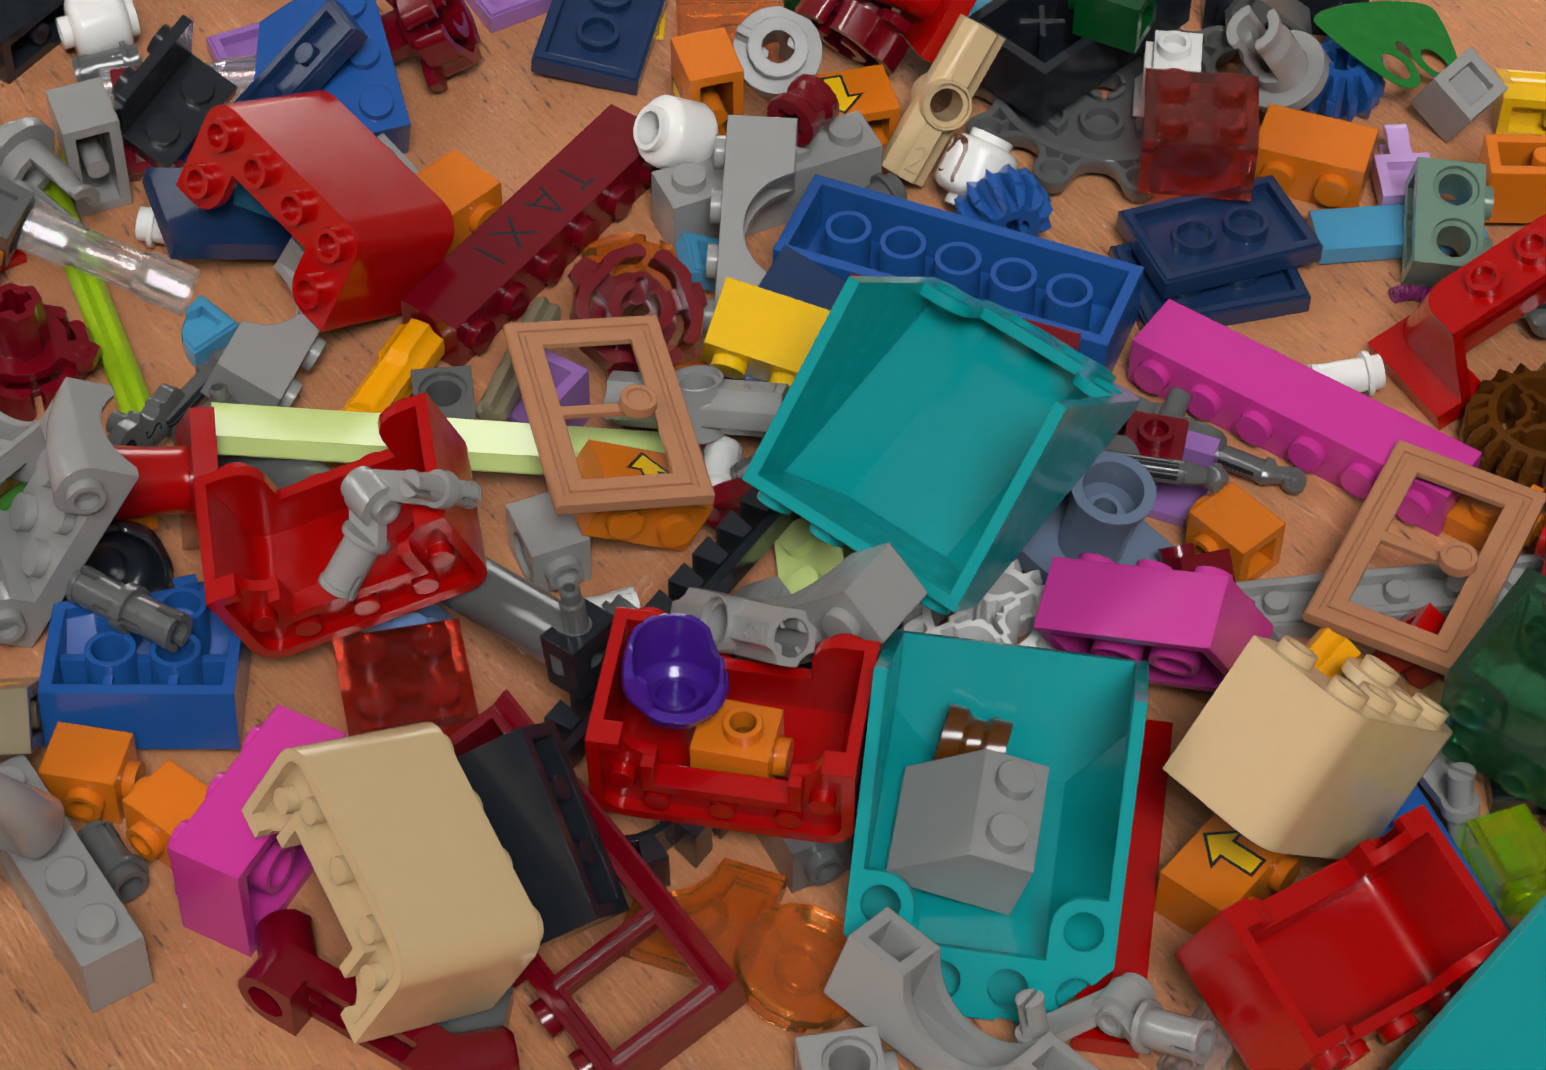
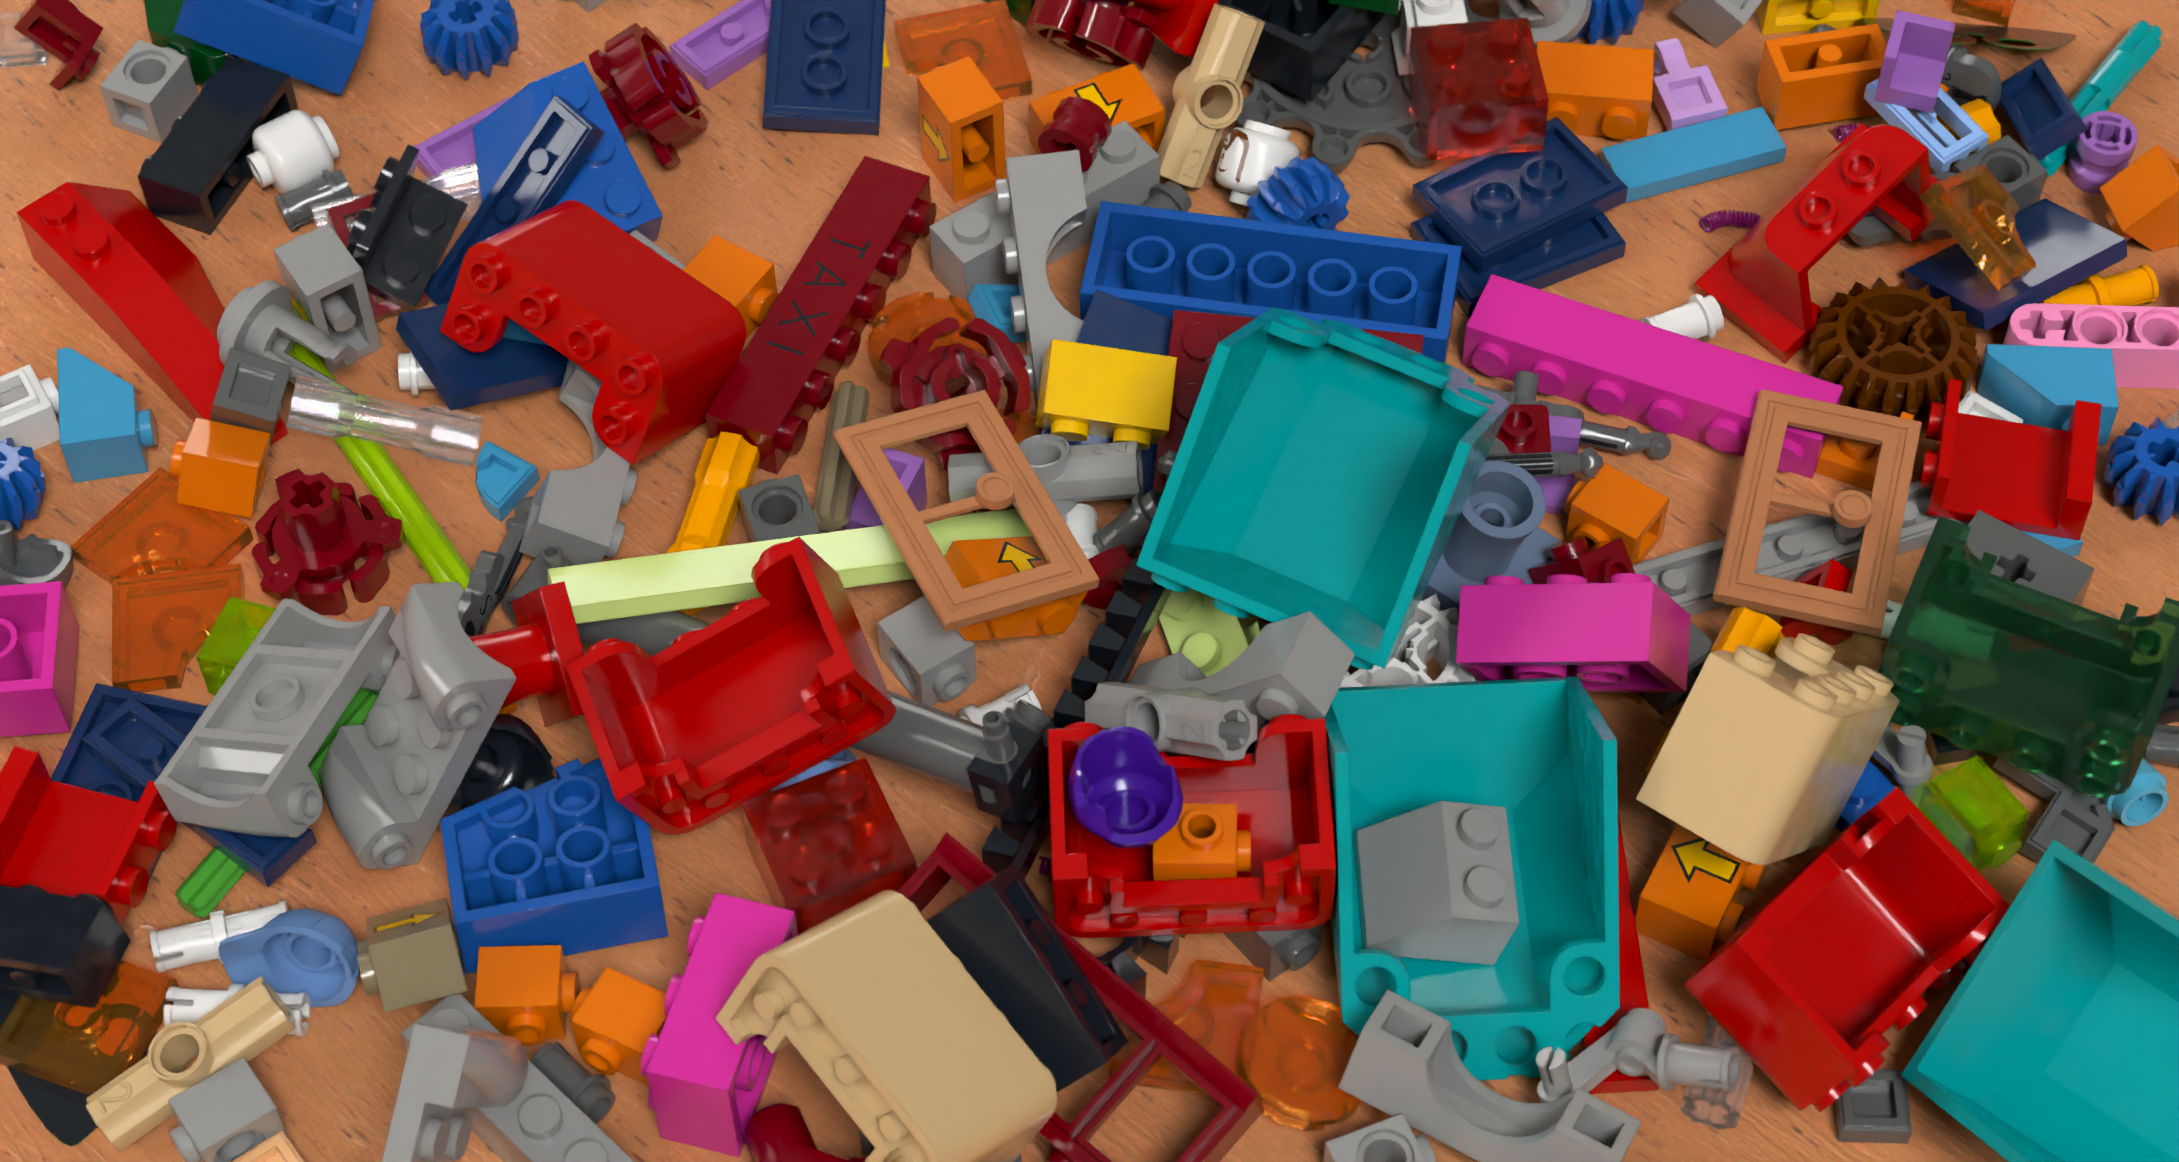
camera: 10 degrees left, 5 degrees up
(129, 608) = (525, 812): dark grey pin -> none
(374, 502) = (773, 663): light grey pin -> none
(675, 131) = (945, 179): white head -> none
(797, 46) = (1041, 56): light grey piece -> none
(967, 733) = (1412, 787): reddish brown wheel -> none
(1435, 222) = (1731, 142): sand green brick -> none

